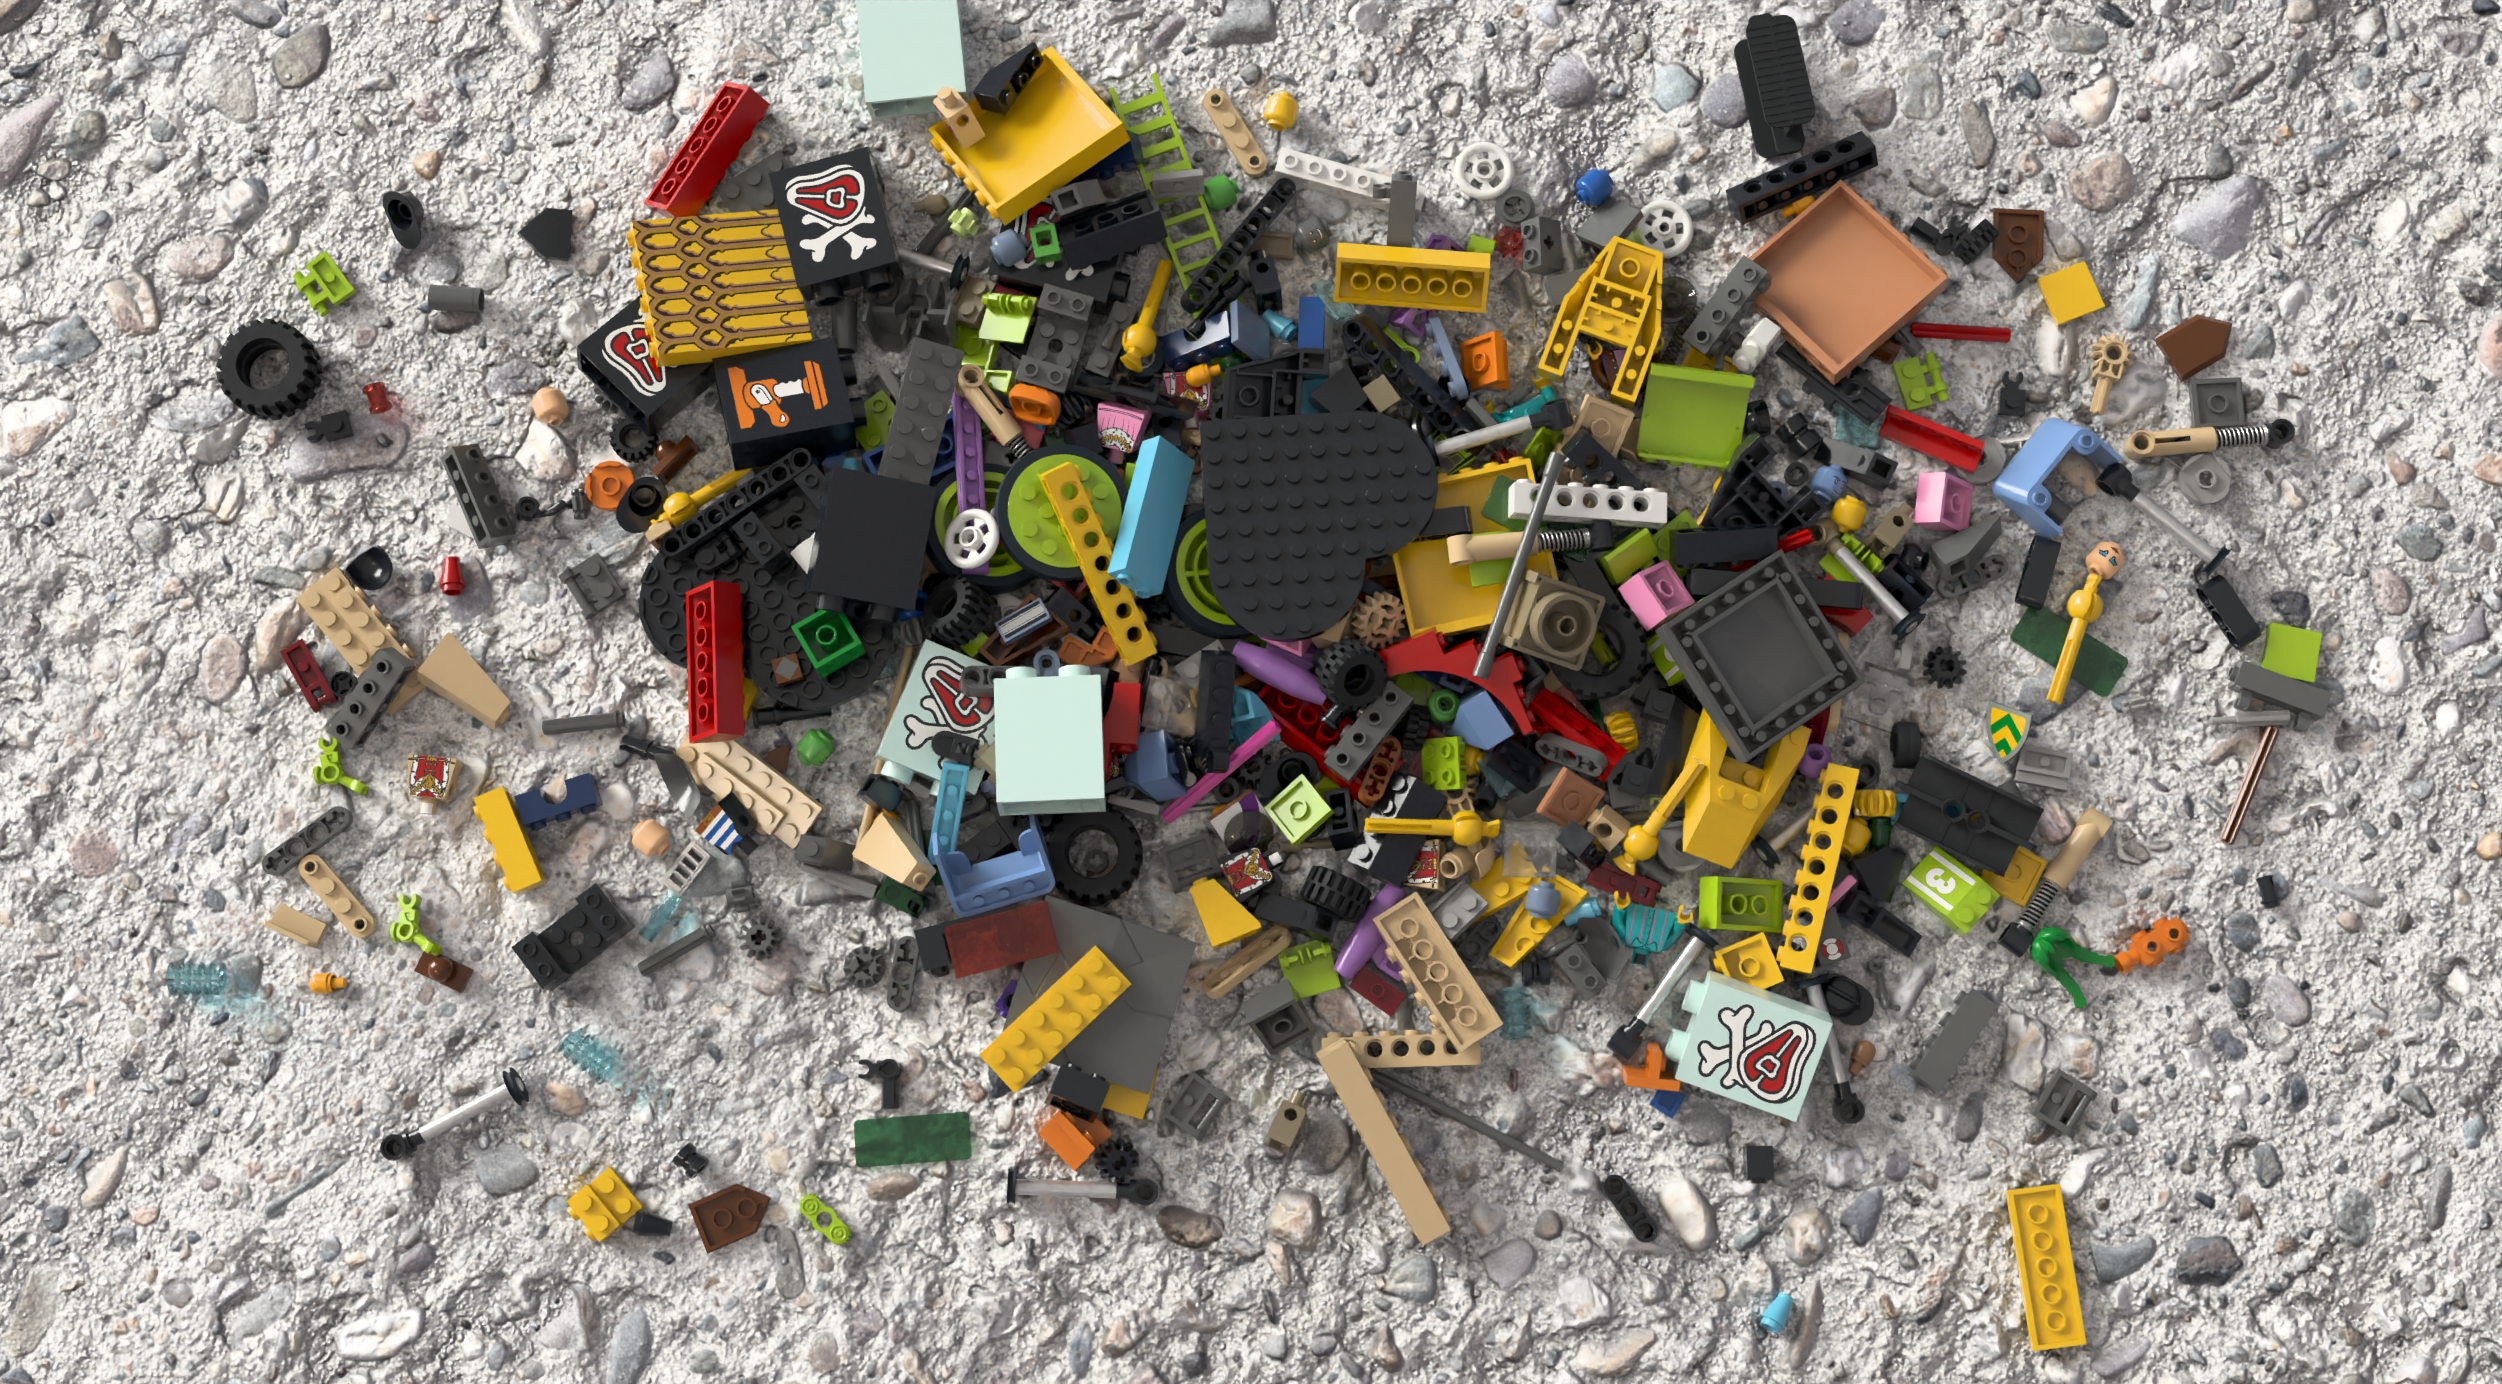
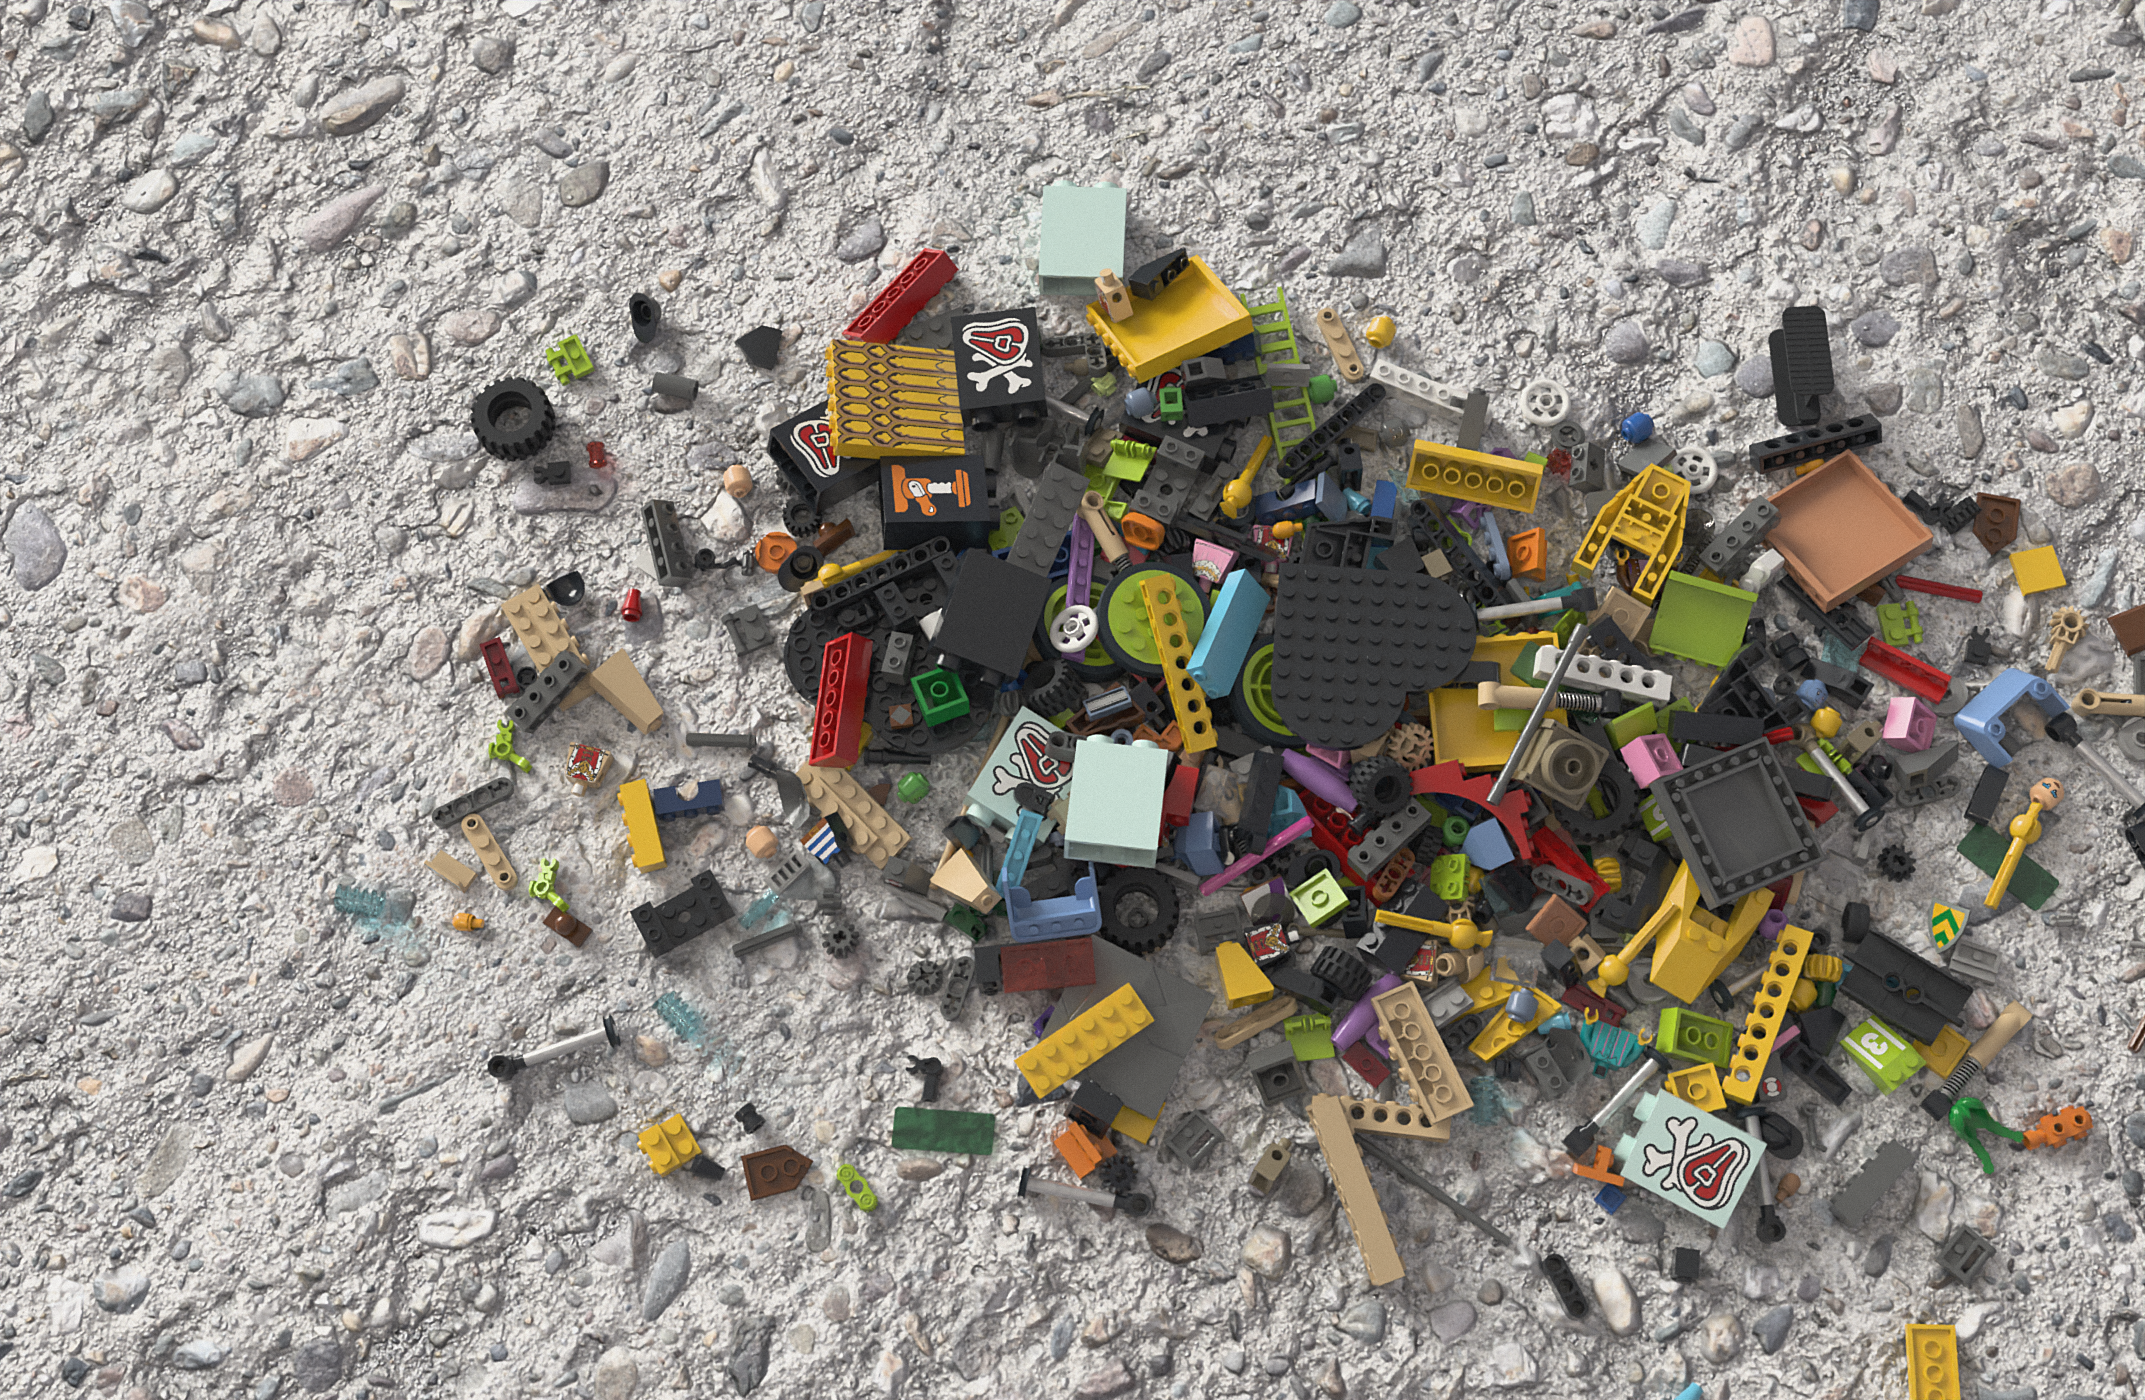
camera: 10 degrees right, 10 degrees down
(773, 600) = (898, 658): none -> dark grey brick
(933, 179) = (1083, 345): none -> dark grey beam

